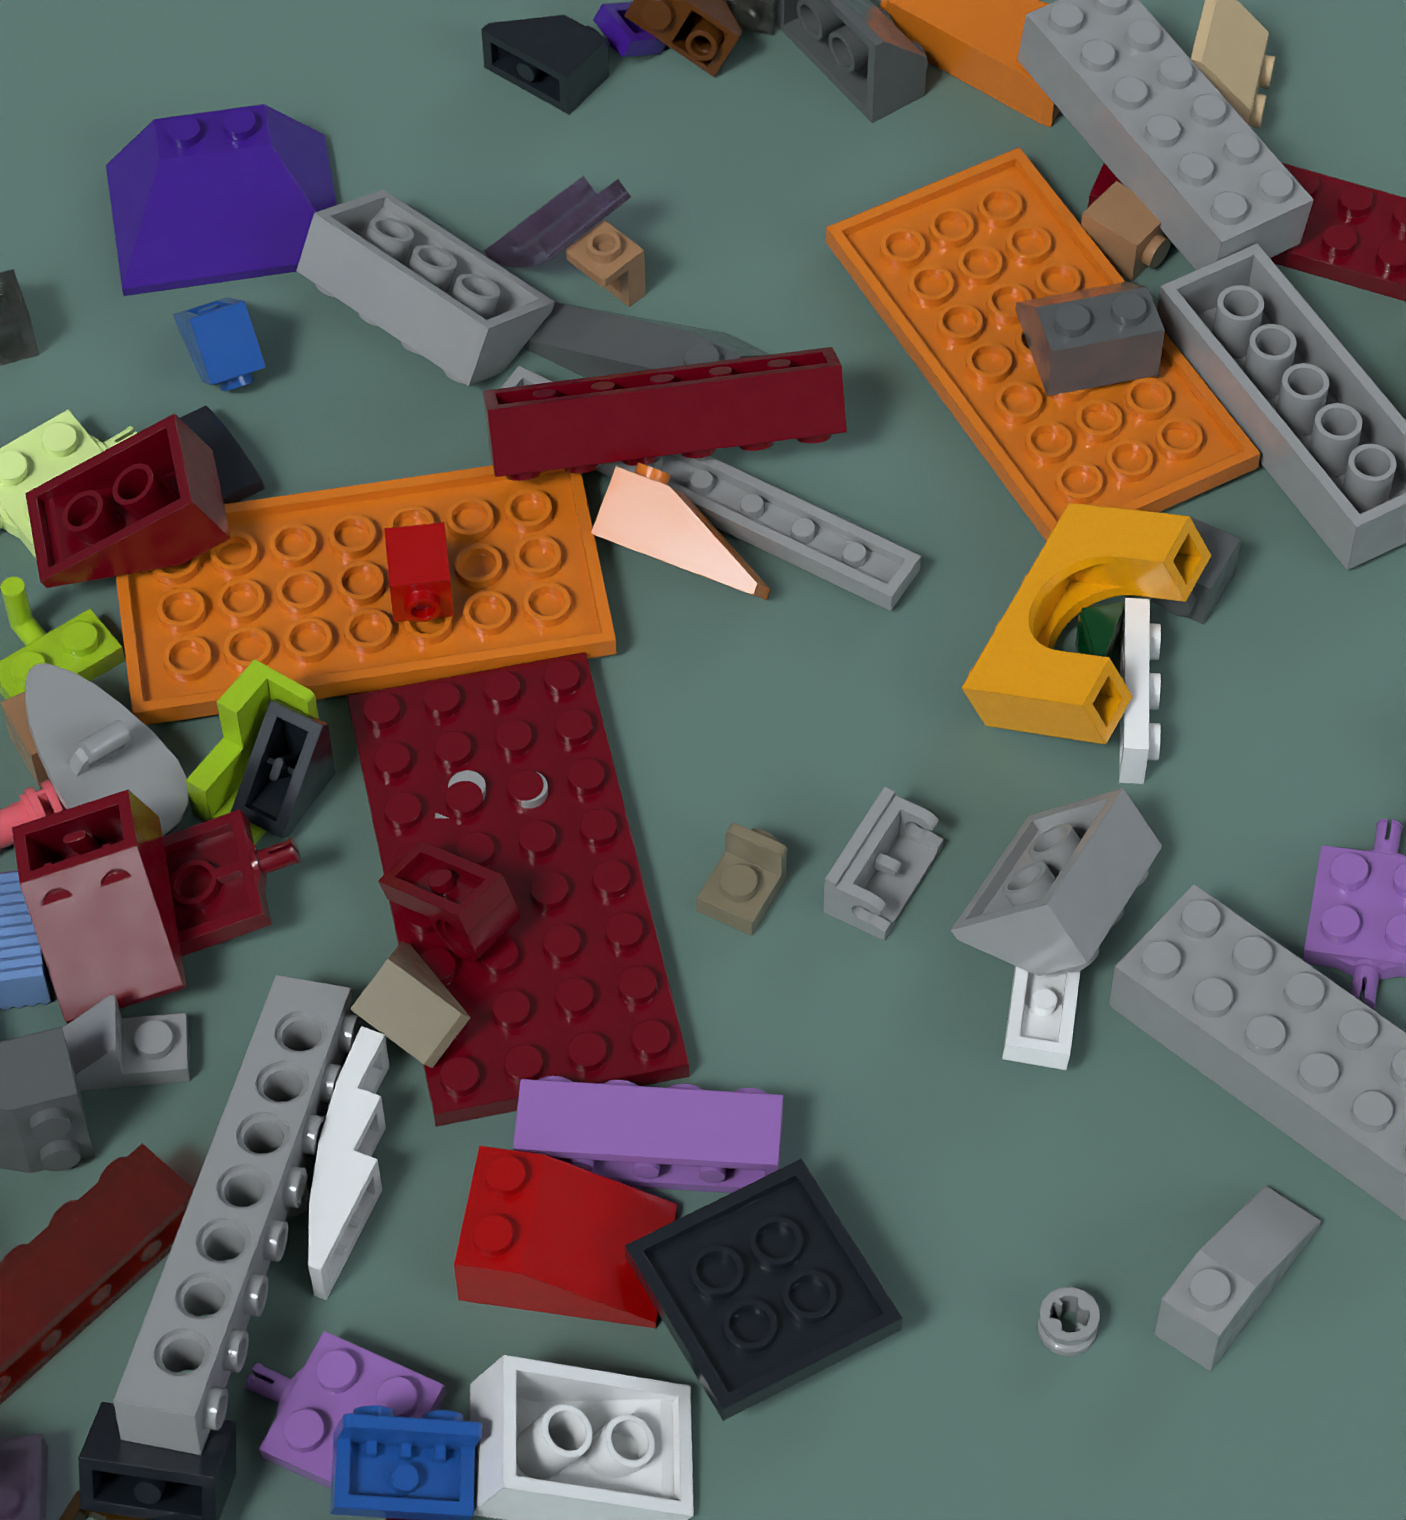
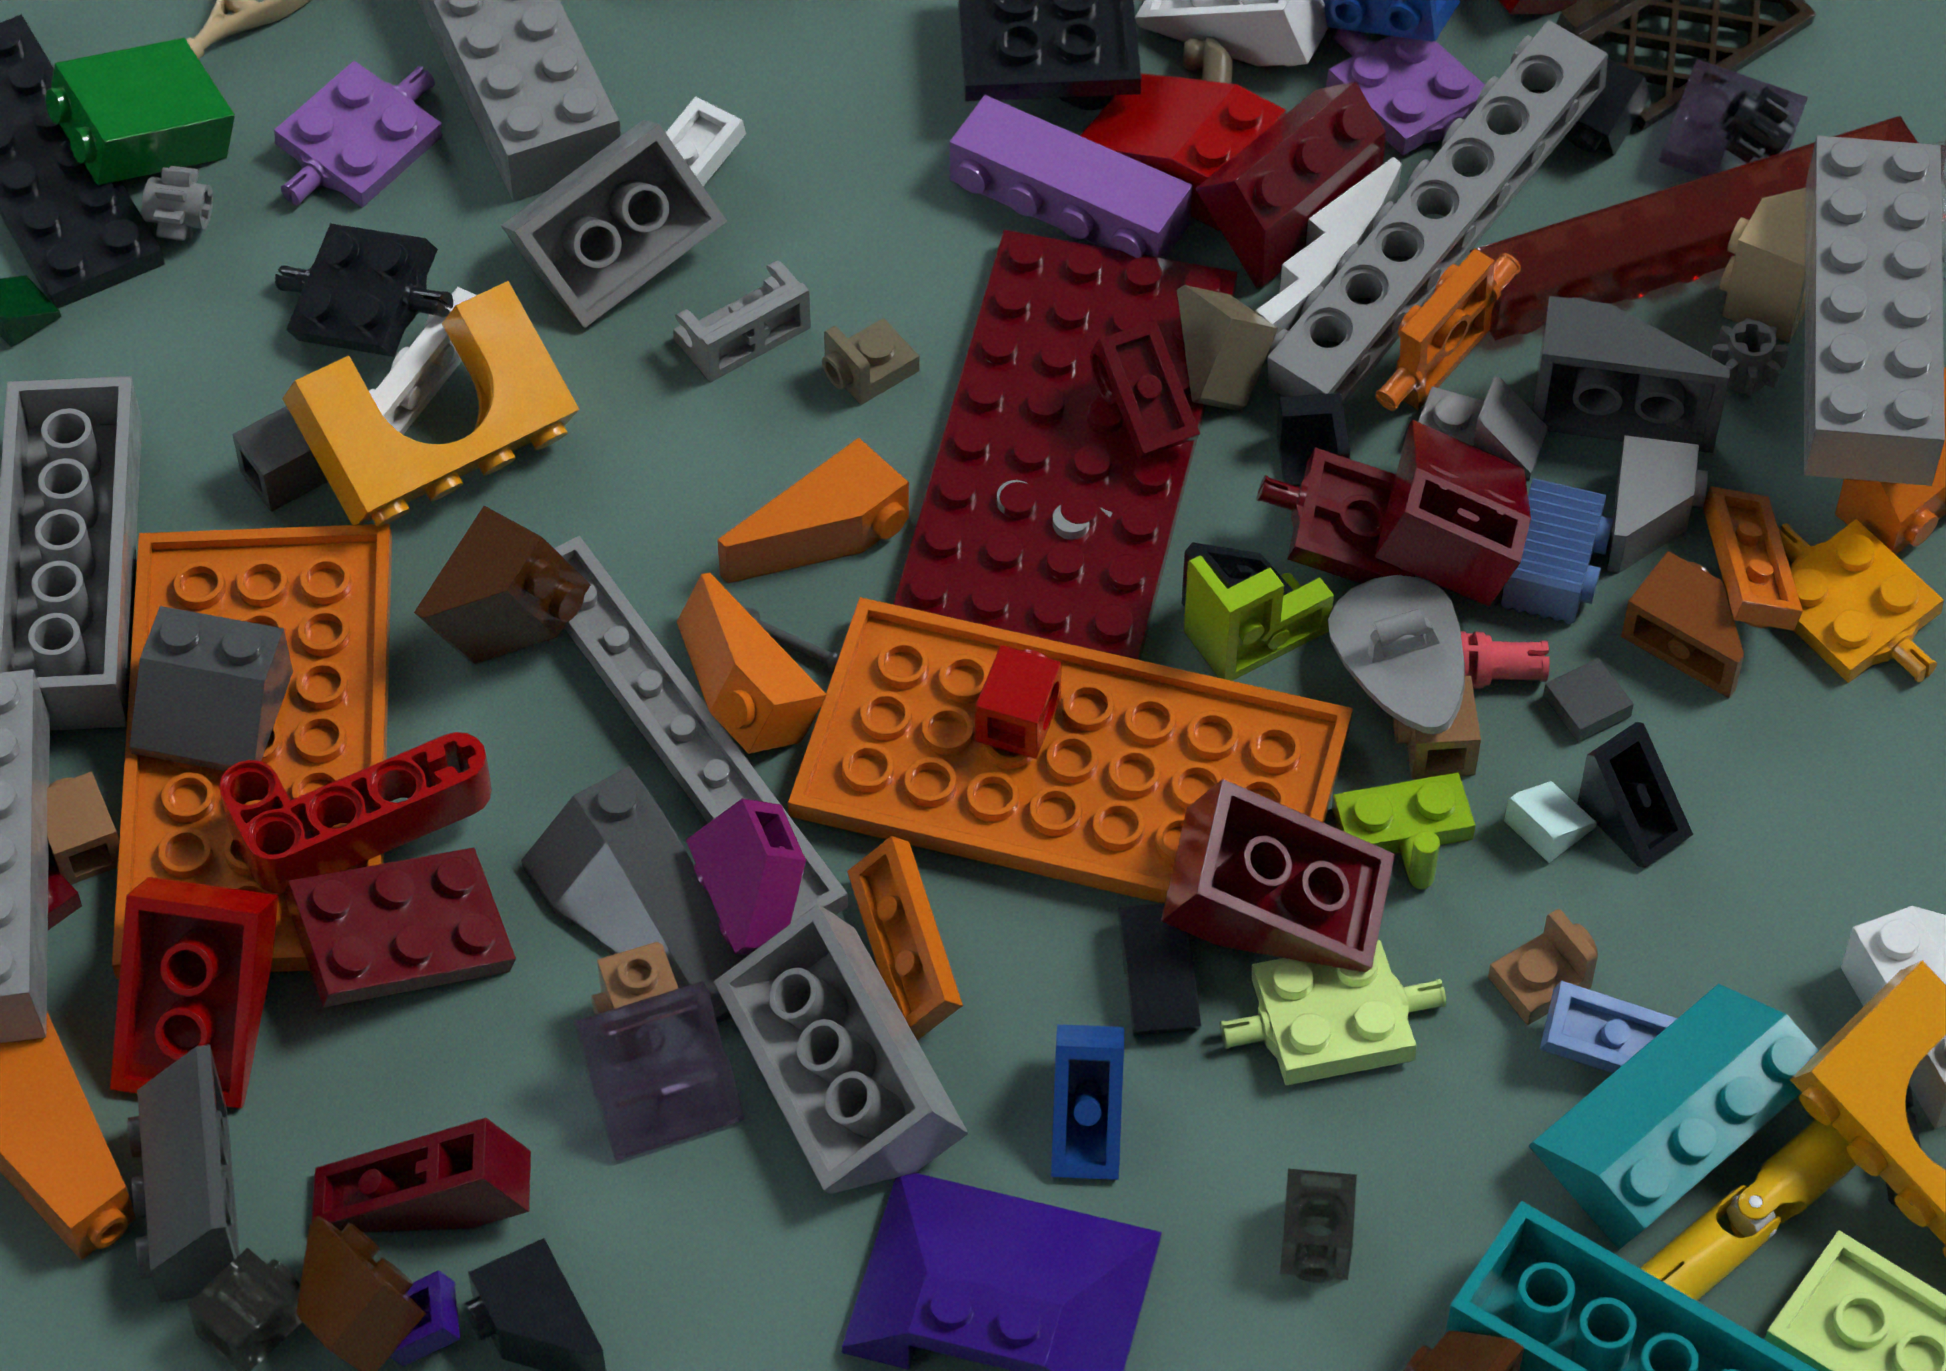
camera: 155 degrees left, 0 degrees up
(184, 1086) = (1446, 327): none -> orange plate
(275, 954) = (1309, 424): none -> black panel
(411, 1190) = (1291, 174): none -> dark red slope
(422, 396) = (904, 935): none -> orange plate
(565, 351) = (750, 871): none -> magenta slope
(566, 1344) = (1209, 57): none -> dark tan arm
(665, 413) = (691, 747): dark red brick -> none
(677, 103) = (428, 1182): none -> dark red slope
(689, 705) = (820, 518): none -> orange slope
(708, 613) = (797, 643): none -> dark grey hinge
(821, 244) = (399, 926): none -> dark red plate
(899, 478) = (501, 590): none -> reddish brown slope
(936, 248) = (440, 779): none -> red beam
(946, 143) = (192, 978): none -> red slope
(1099, 629) = (423, 415): dark green slope -> none
(1237, 726) = (363, 290): none -> black plate

